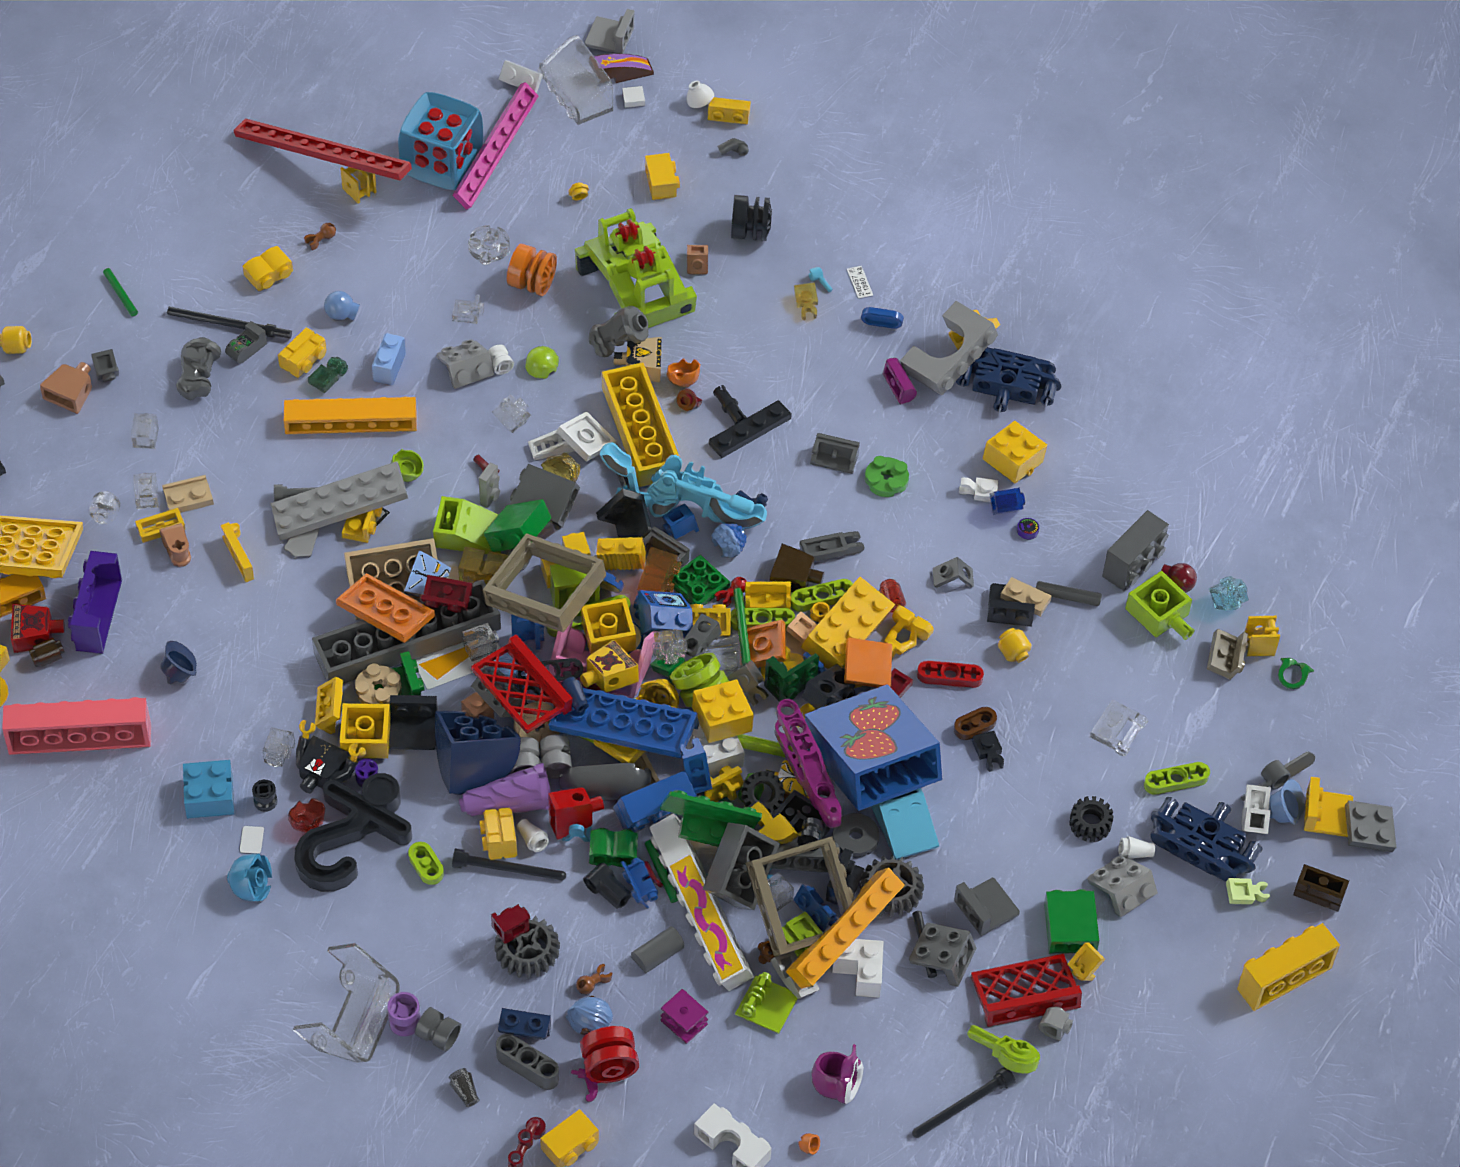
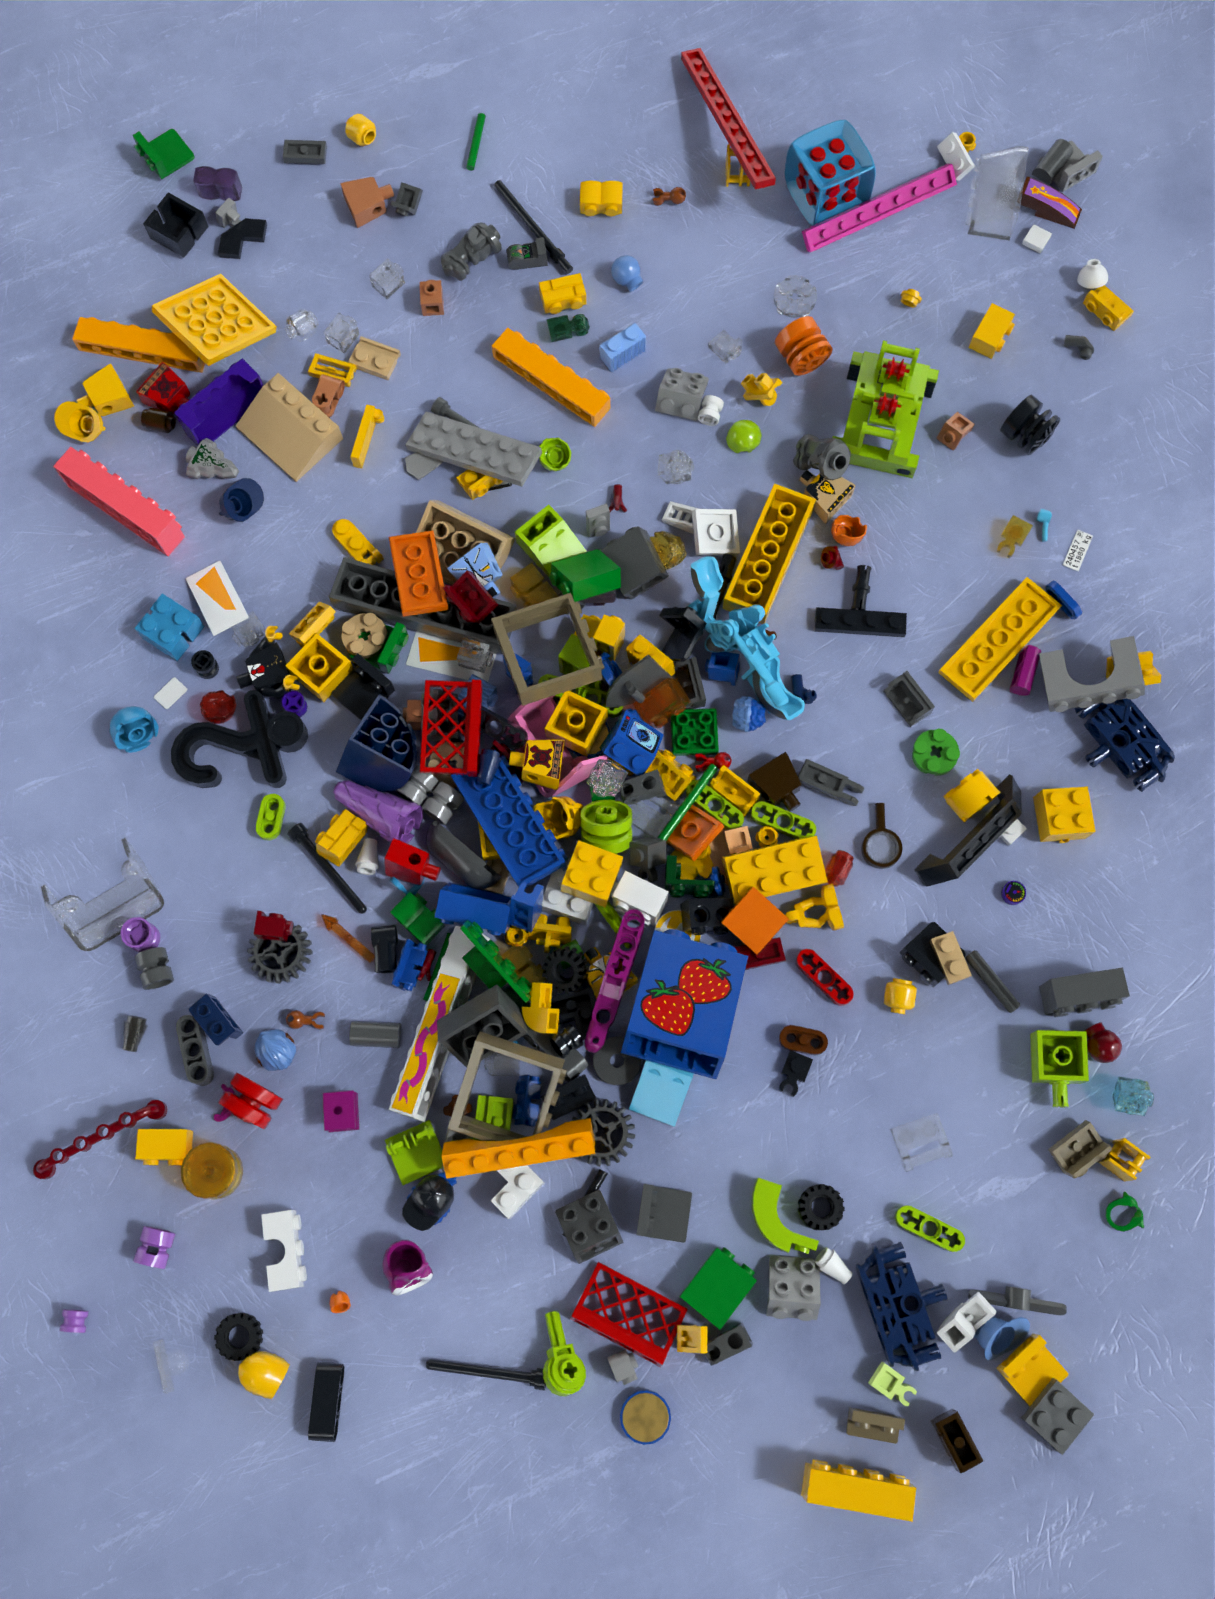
camera: 45 degrees right, 20 degrees up
(122, 653) = (209, 462): none -> light grey rock
(166, 585) = (288, 427): none -> tan slope
(196, 421) = (431, 298): none -> nougat brick
(227, 742) = (217, 598): none -> white sticker
(300, 631) = (355, 542): none -> yellow plate
(520, 60) = (969, 140): none -> yellow plate
(528, 319) = (761, 388): none -> yellow hips
(548, 900) = (332, 924): none -> clear orange piece
(597, 36) = (1053, 161): none -> dark grey brick
(625, 1127) = (197, 1167): none -> clear yellow wheel
(629, 568) = (635, 683): none -> dark grey shield
(764, 707) = (640, 895): none -> white brick
(810, 1022) = (429, 1201): none -> black hair
(861, 373) = (999, 639): none -> yellow plate
(907, 562) = (881, 846): none -> piece
(941, 481) = (971, 795): none -> yellow brick
(951, 571) = (909, 885): dark grey bracket -> none
(971, 534) = (978, 840): none -> black slope
(1007, 501) = (1015, 856): clear blue brick -> none
(1067, 854) = (765, 1215): none -> lime arch
(1101, 1044) = (645, 1417): none -> pearl gold tile
(1114, 950) = (728, 1344): none -> dark grey leg
(1258, 922) = (874, 1425): none -> dark tan bracket

